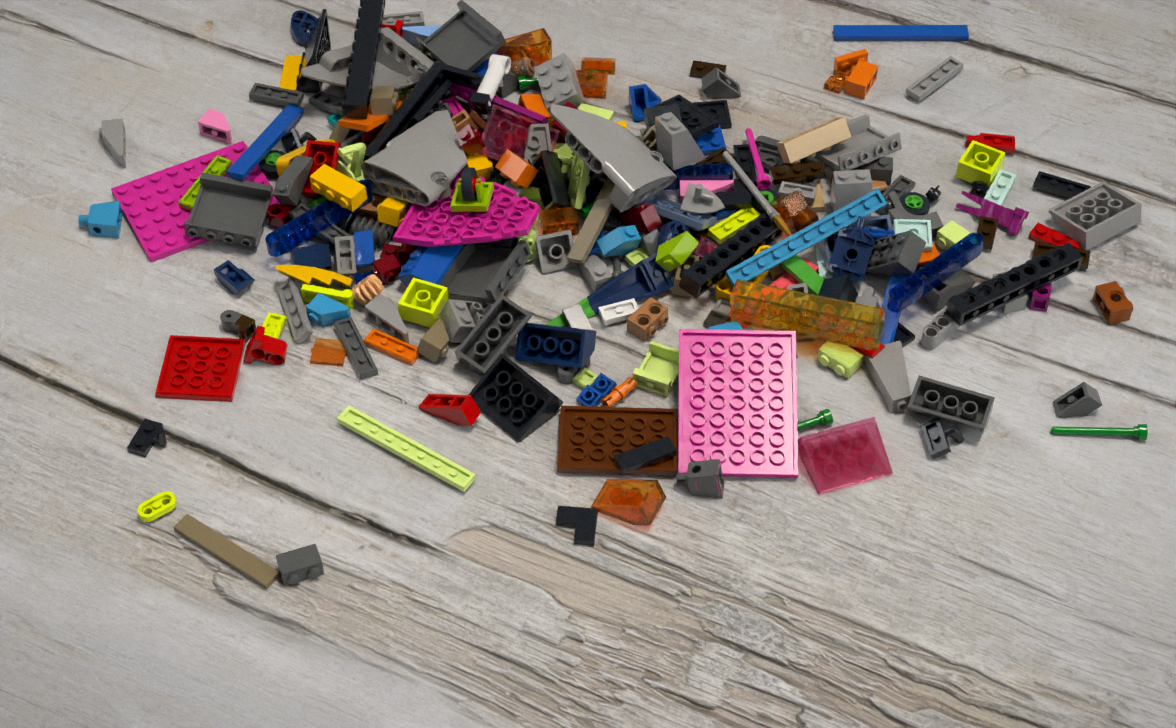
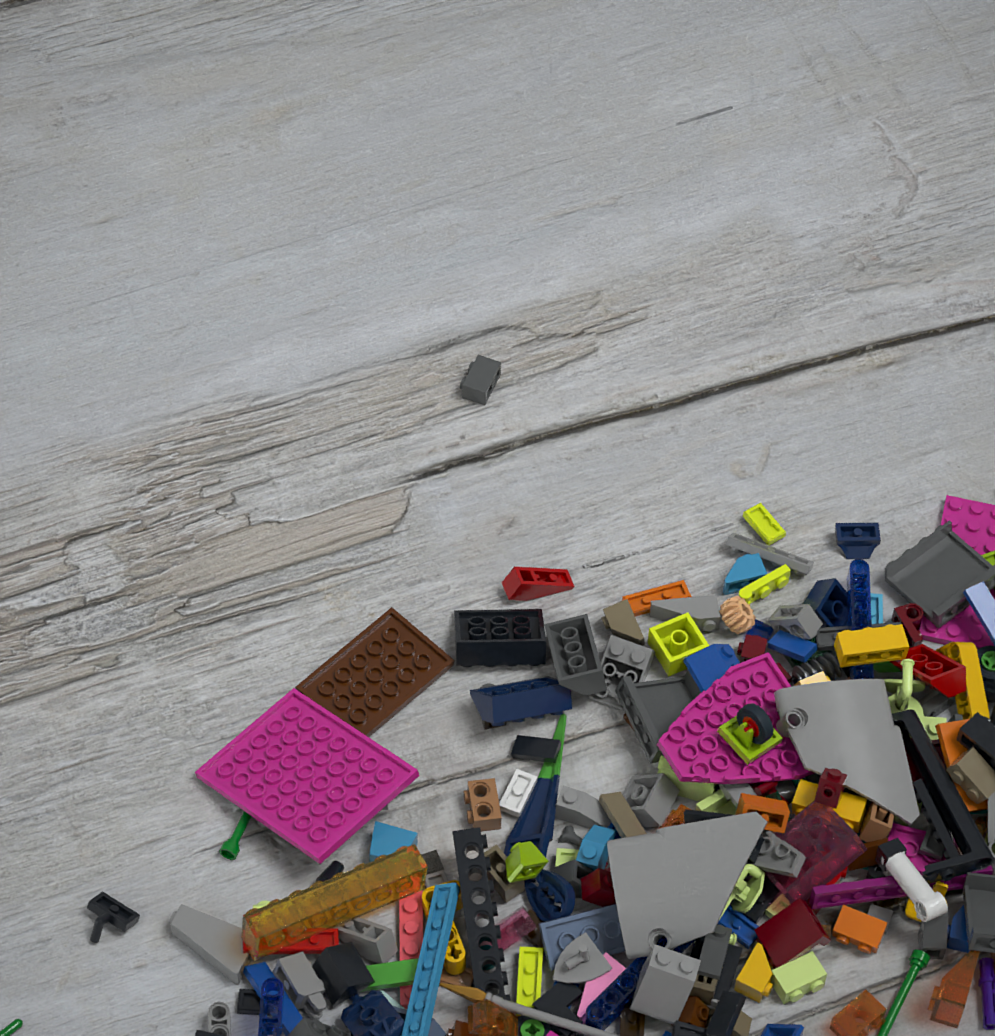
camera: 130 degrees right, 5 degrees up
(147, 435) = (722, 368): black plate -> none
(156, 506) = (639, 337): neon yellow plate -> none
(200, 368) = (770, 453): red tile -> none
(227, 551) = (551, 349): dark tan tile -> none
(238, 324) = (793, 505): leg -> none
(265, 348) = (739, 499): red tile -> none
(292, 181) = (924, 628): dark grey slope -> none
(307, 274) = (797, 584): yellow slope -> none
(328, 352) = (698, 552): clear orange piece -> none
(355, 348) = (680, 569): dark grey tile -> none
(406, 448) = (527, 525): yellowish green plate -> none
(523, 67) = (934, 968): medium nougat head -> none
(559, 82) = (869, 969): light grey brick -> none
(582, 519) = (324, 592): black tile -> none
(584, 377) = (467, 710): yellowish green tile -> none
(597, 391) = (445, 705): blue slope -> none
(619, 392) = (425, 717): orange pin -> none
(630, 500) = (304, 631): clear orange slope -> none
(645, 455) = (333, 672): black tile -> none
(658, 370) = (421, 755): yellowish green panel -> none
(703, 478) = (262, 693): dark grey torso -> none
(844, 455) = (176, 824): clear pink slope -> none
(951, 403) = (126, 947): dark grey slope -> none

